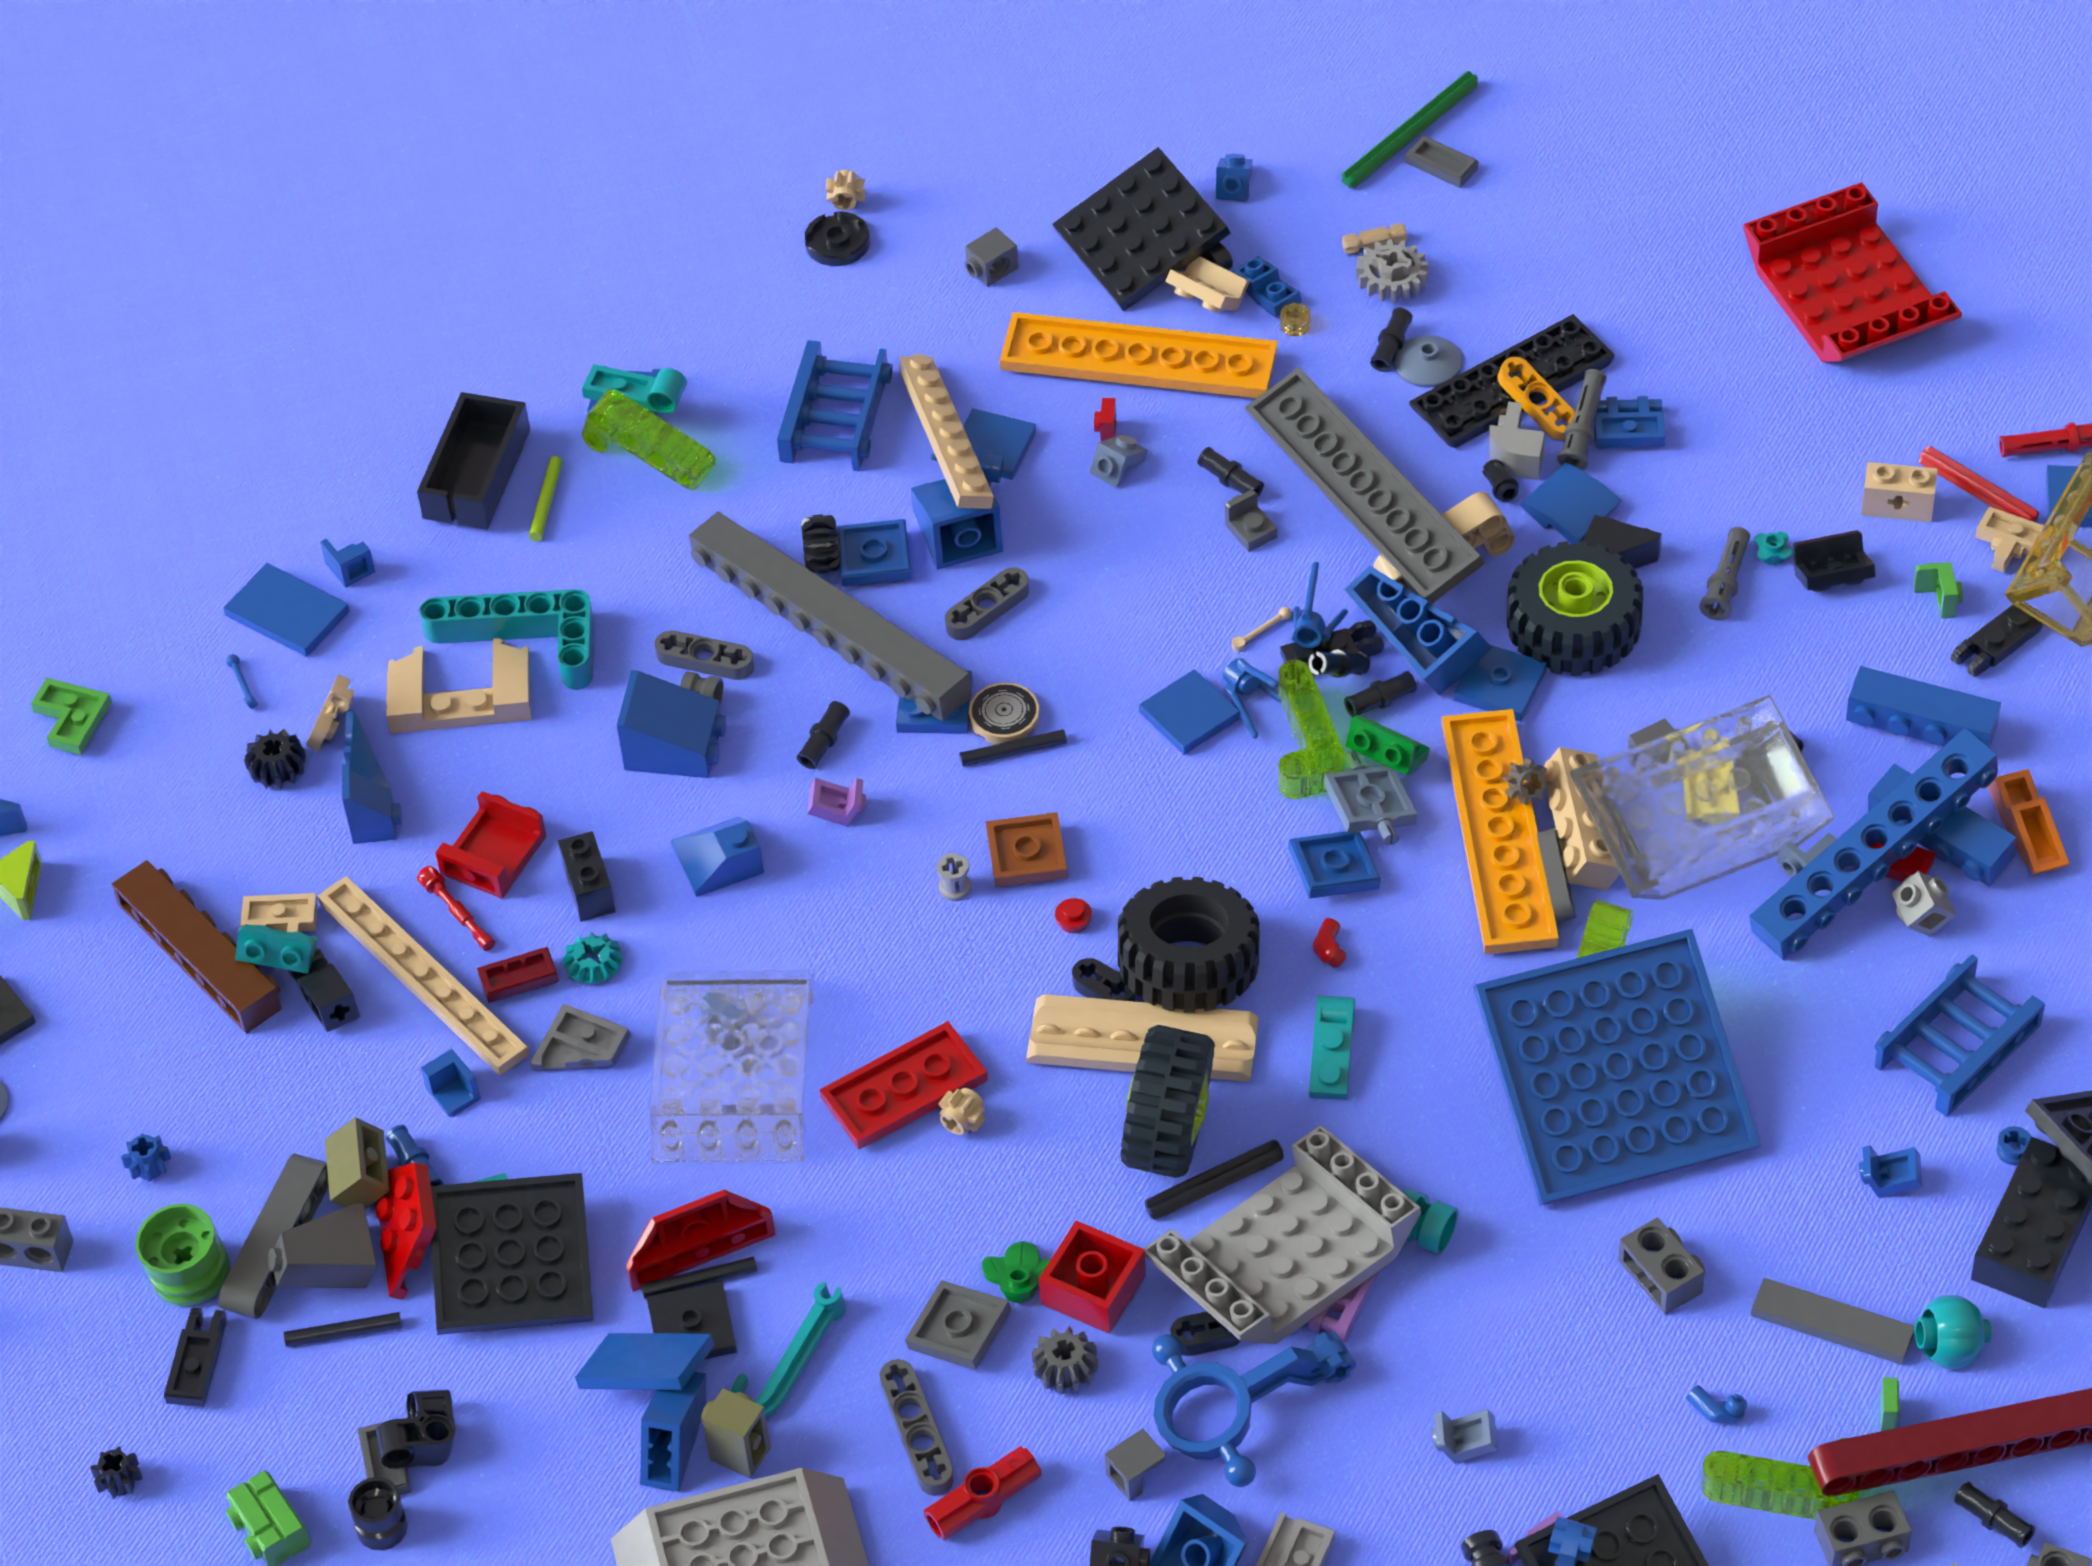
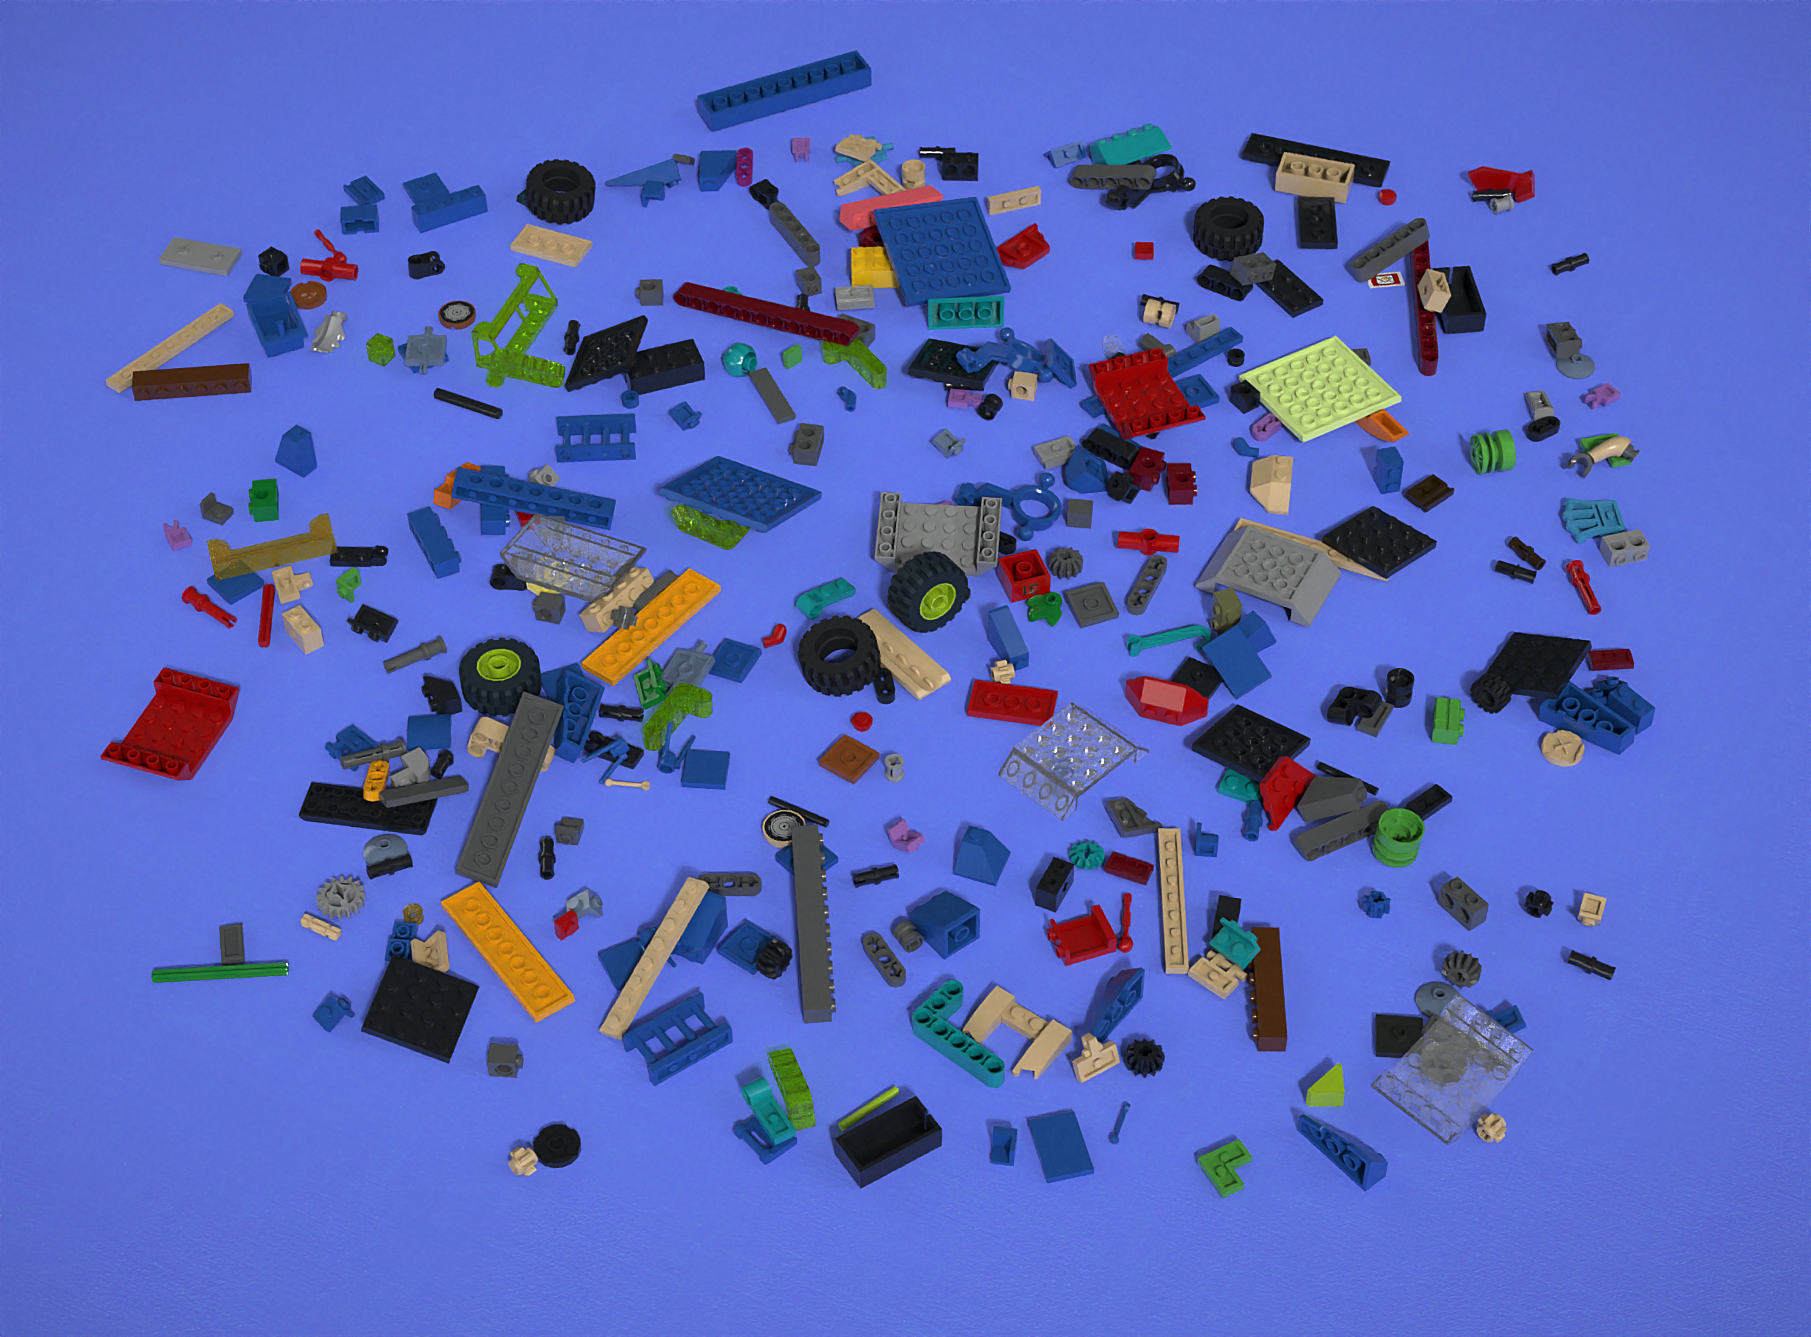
camera: 140 degrees left, 5 degrees down
(116, 1472) = (1498, 781): black gear -> none
(357, 1164) = (1286, 821): olive brick -> none
(1003, 1156) = (1006, 638): none -> blue slope
(1339, 663) = (626, 726): black pin -> none
(1435, 1223) = (869, 508): teal wheel -> none
(1464, 423) = (423, 791): none -> dark grey tile
(1773, 547) = (381, 653): teal plate -> none

